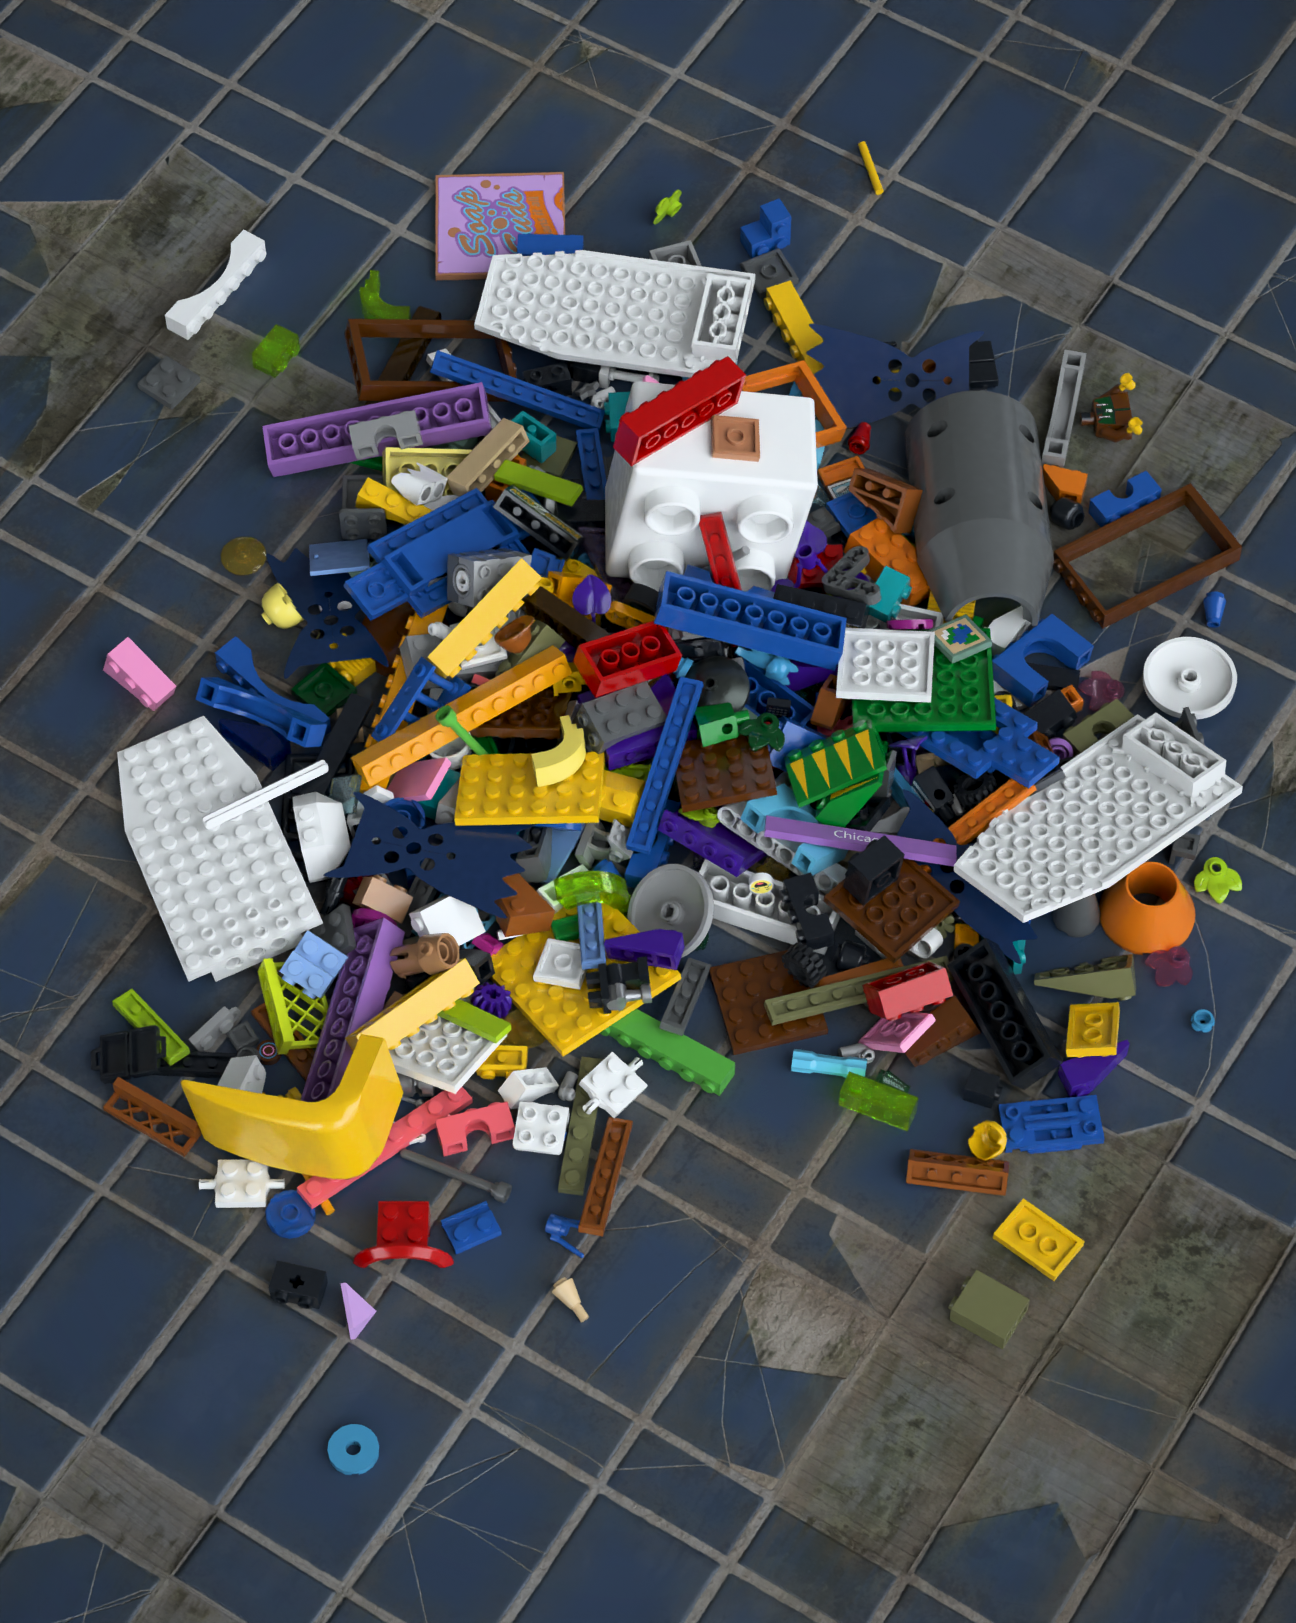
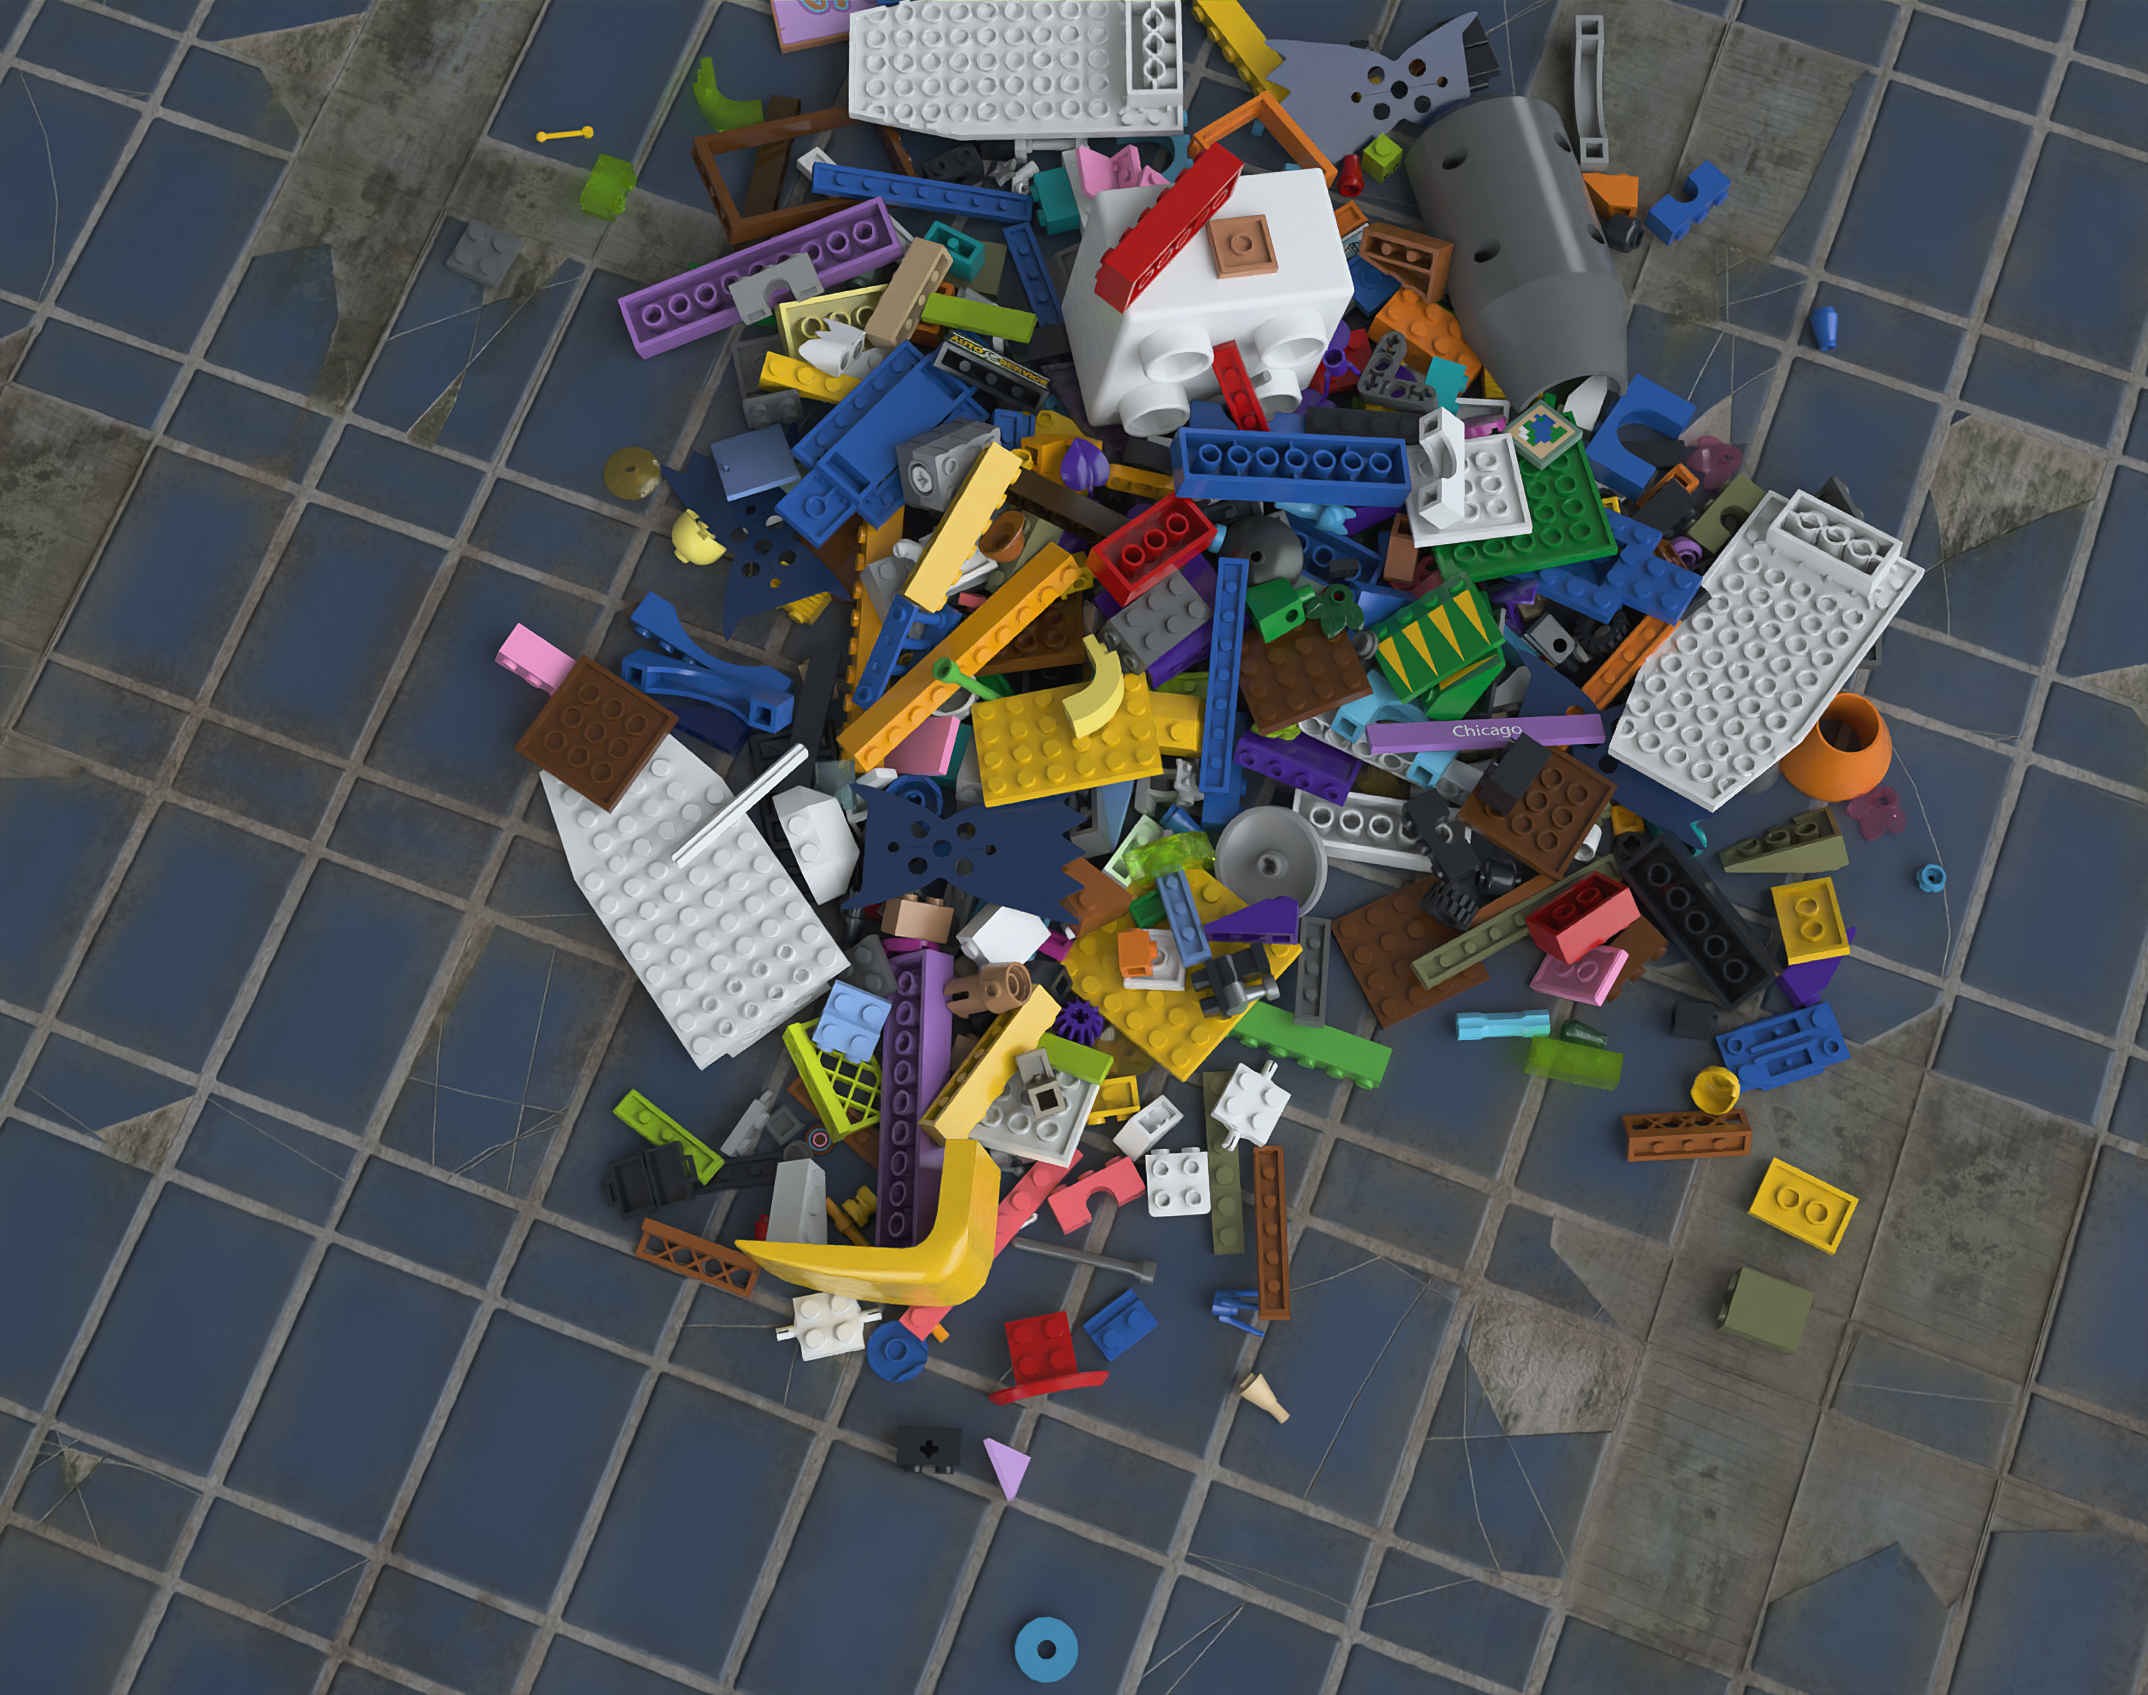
camera: 10 degrees left, 15 degrees up
(168, 727) = (596, 734): none -> reddish brown plate
(190, 313) = (489, 156): white arch -> none
(269, 310) = (587, 132): none -> yellow hinge
(324, 689) = (775, 640): dark green plate -> none
(447, 1027) = (1039, 1083): none -> dark tan brick
(547, 952) = (1136, 953): none -> orange brick
(566, 1089) = (1192, 1115): light grey arm -> none
(761, 883) = (1374, 809): tile -> none
(780, 760) = (1365, 644): none -> dark grey plate
(857, 1050) = (1533, 999): light grey arm -> none
(877, 625) = (1444, 442): none -> white arch
(887, 429) = (1381, 158): none -> lime brick
(1112, 413) = (1647, 89): torso -> none
(1189, 675) = (1819, 427): white dish -> none
(1201, 511) = (1790, 208): reddish brown door -> none
(1217, 882) = (1907, 692): lime plate -> none

